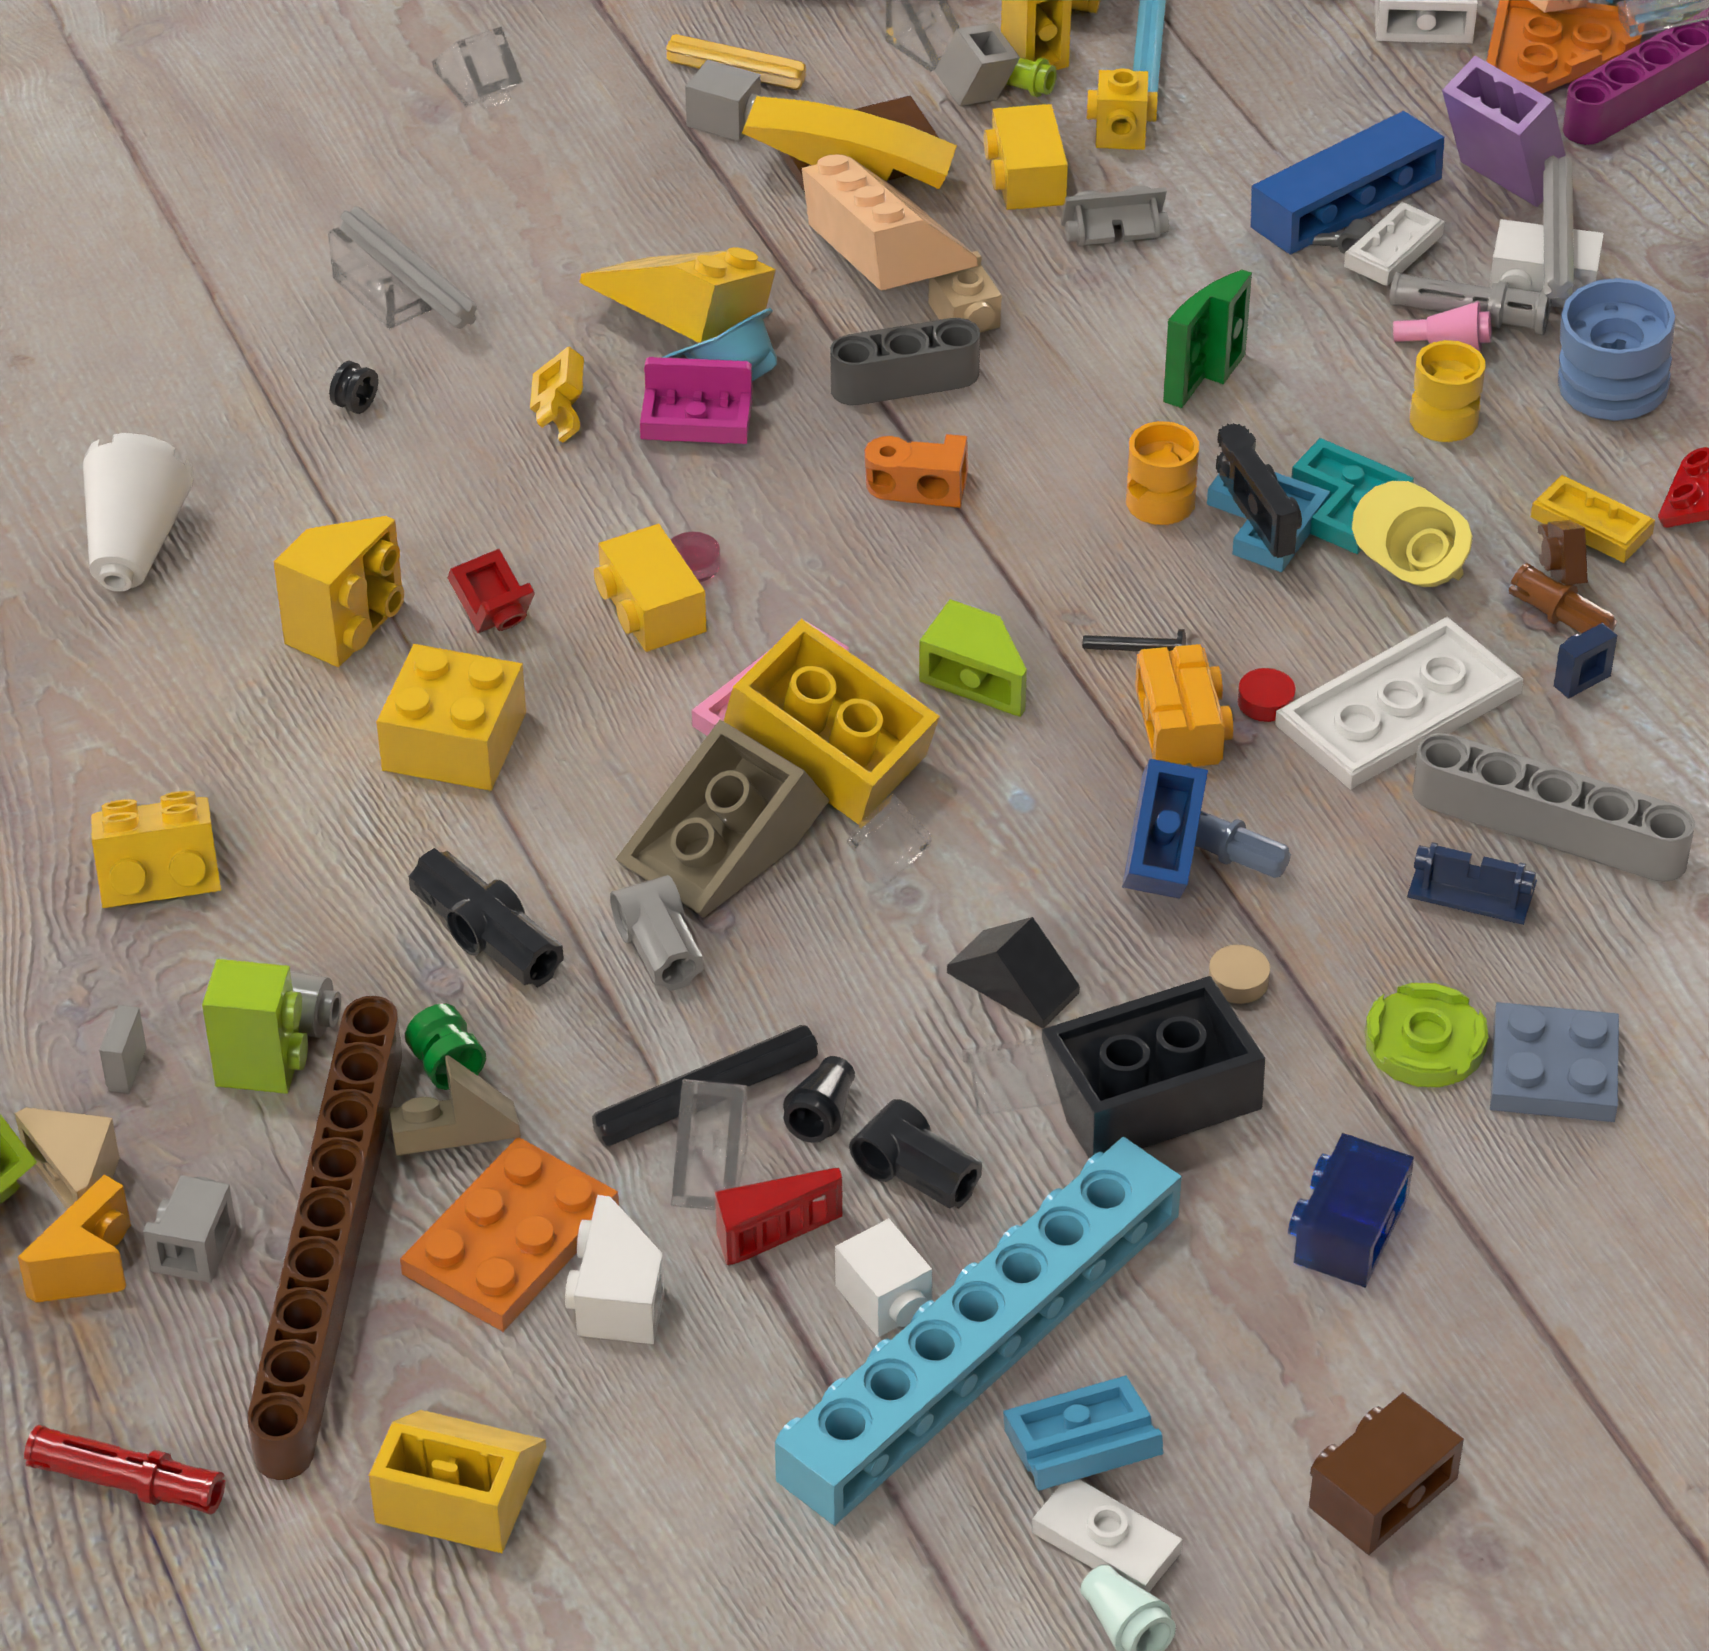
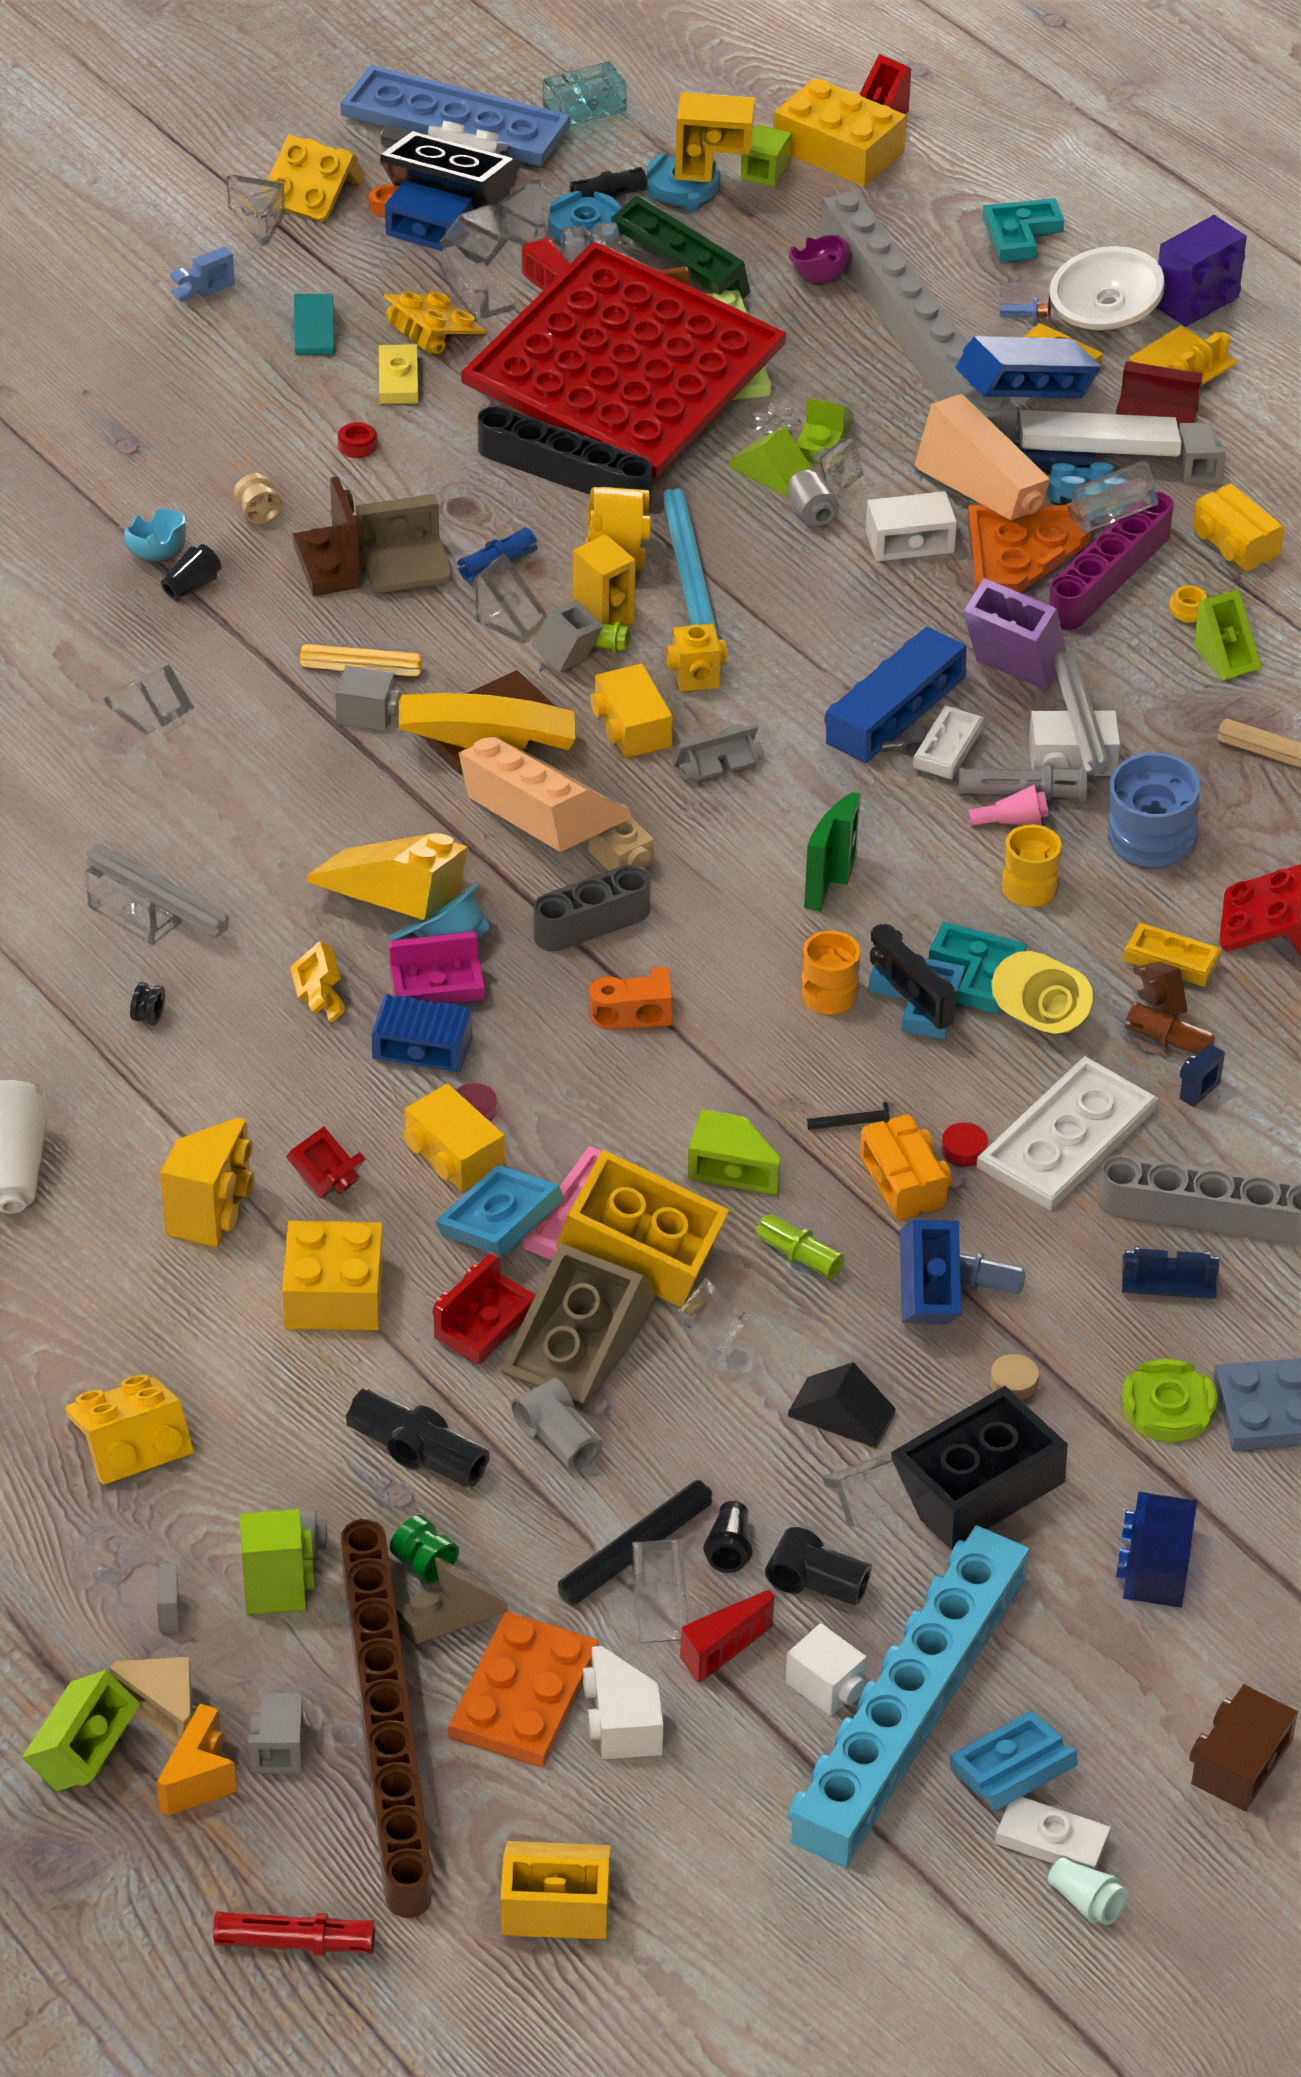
camera: 15 degrees left, 0 degrees up
(609, 784) = (480, 1310): none -> red bracket
(656, 467) = (422, 1033): none -> blue brick
(673, 676) = (500, 1210): none -> dark azure plate
(1025, 778) = (800, 1246): none -> lime axle

